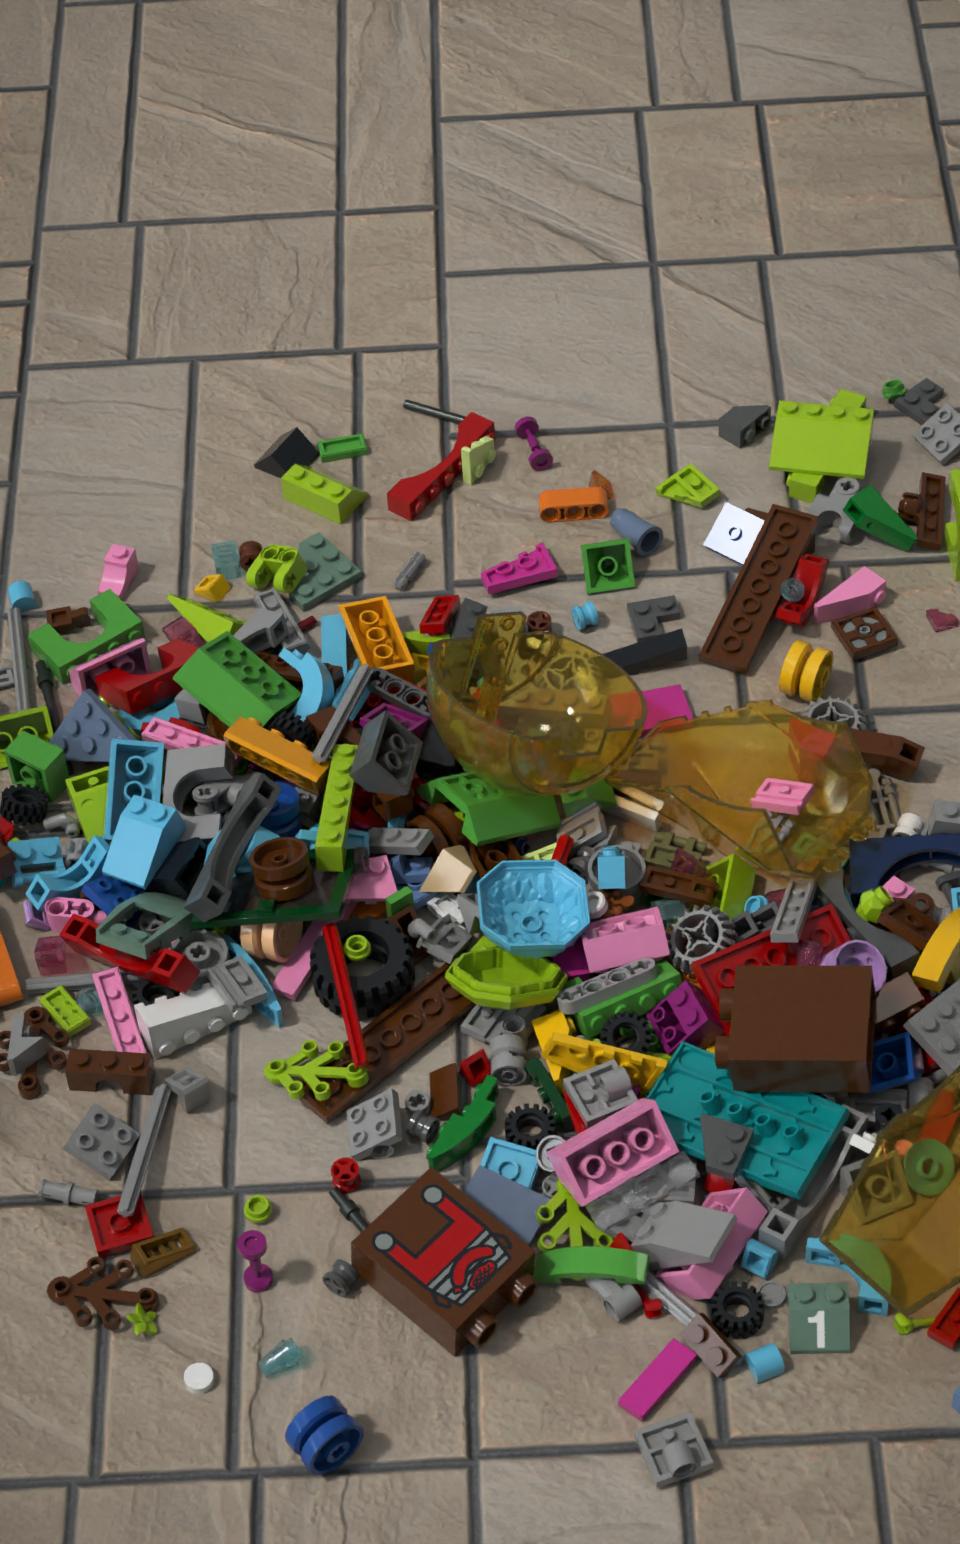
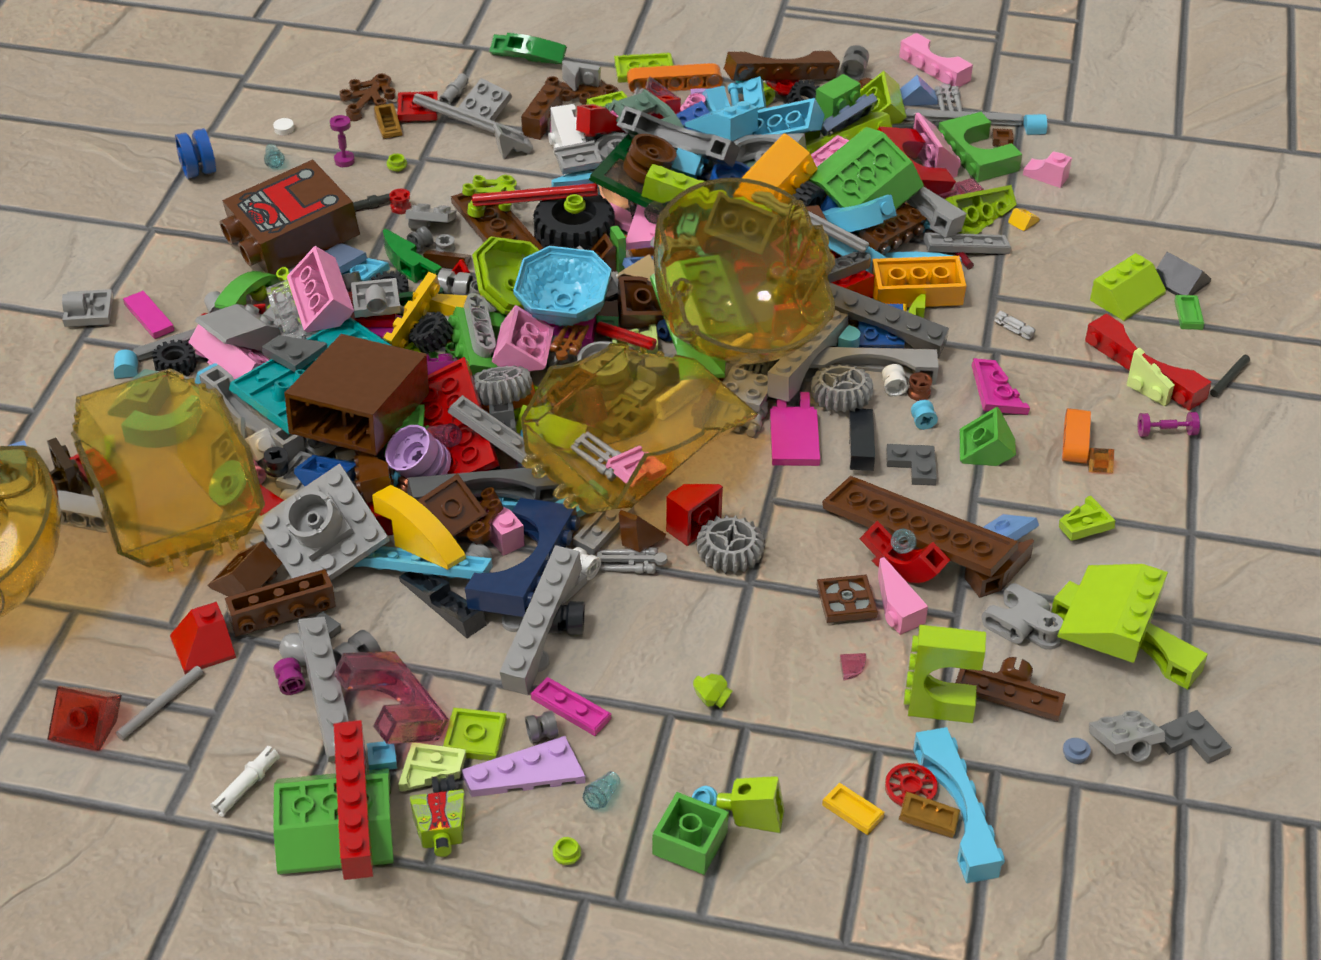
camera: 100 degrees right, 5 degrees down
(143, 1321) = (337, 106): lime plant -> none
(226, 559) = (1053, 227): clear light blue slope -> none
(248, 553) = (1051, 237): copper wheel -> none
(277, 561) = (1027, 247): lime piece -> none
(326, 573) = (1027, 277): sand green plate -> none
(420, 928) = (586, 244): light grey arm -> none
(439, 615) = (958, 332): red plate -> none
(596, 904) = (562, 331): white tile -> none
(611, 868) = (588, 338): medium azure slope -> none
(641, 534) = (1027, 466): sand blue plant -> none
(710, 1345) = (161, 332): plate -> none
(744, 423) = (1178, 577): dark grey slope -> none
(806, 671) = (794, 529): yellow wheel -> none
(873, 904) = (484, 488): lime rock -> none
(877, 518) = (1002, 624): green slope -> none
(889, 752) = (675, 559): reddish brown slope -> none
(893, 389) = (1214, 713): bright green plate -> none

